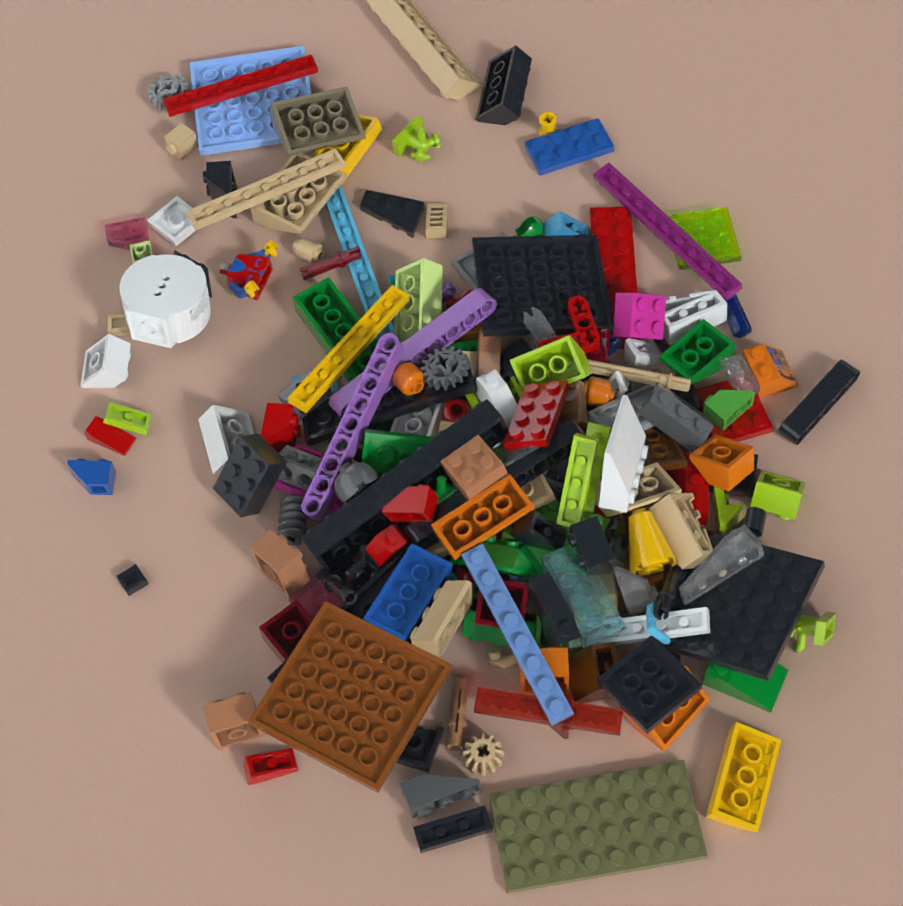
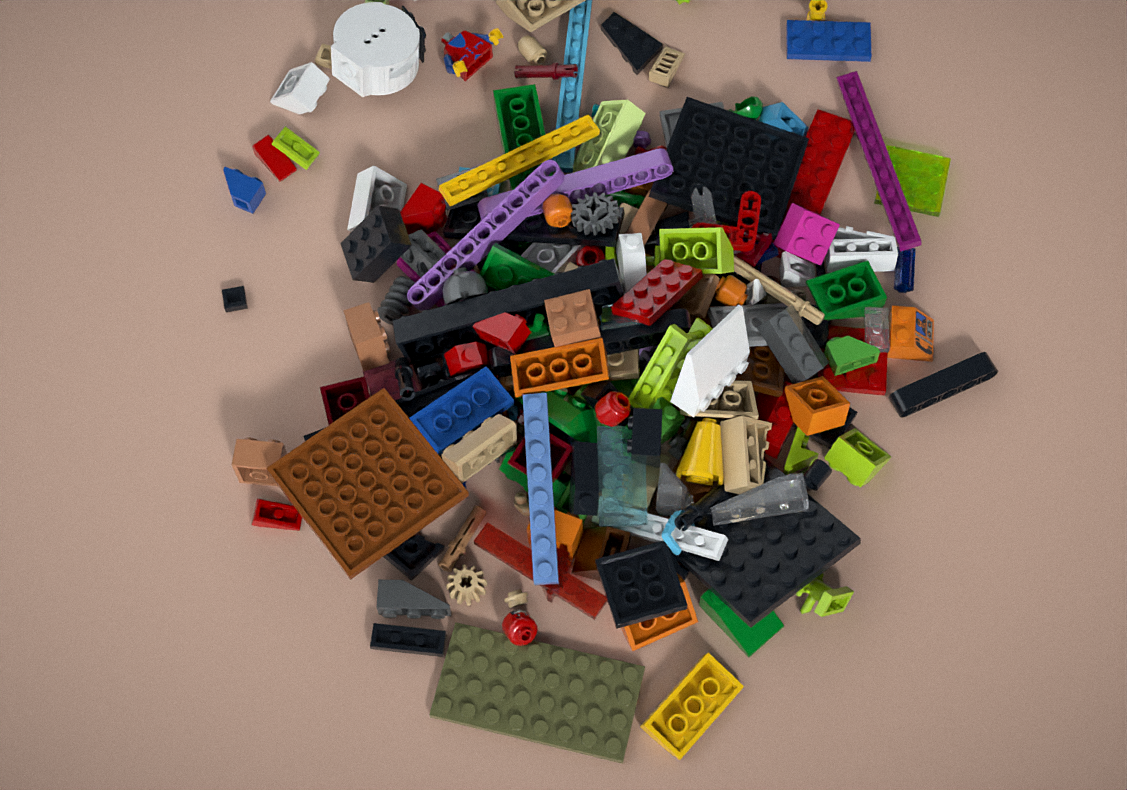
camera: 20 degrees right, 5 degrees up
(535, 747) = (516, 598): none -> tan plate
(550, 534) = (612, 408): none -> red head
(553, 772) = (519, 627): none -> red head

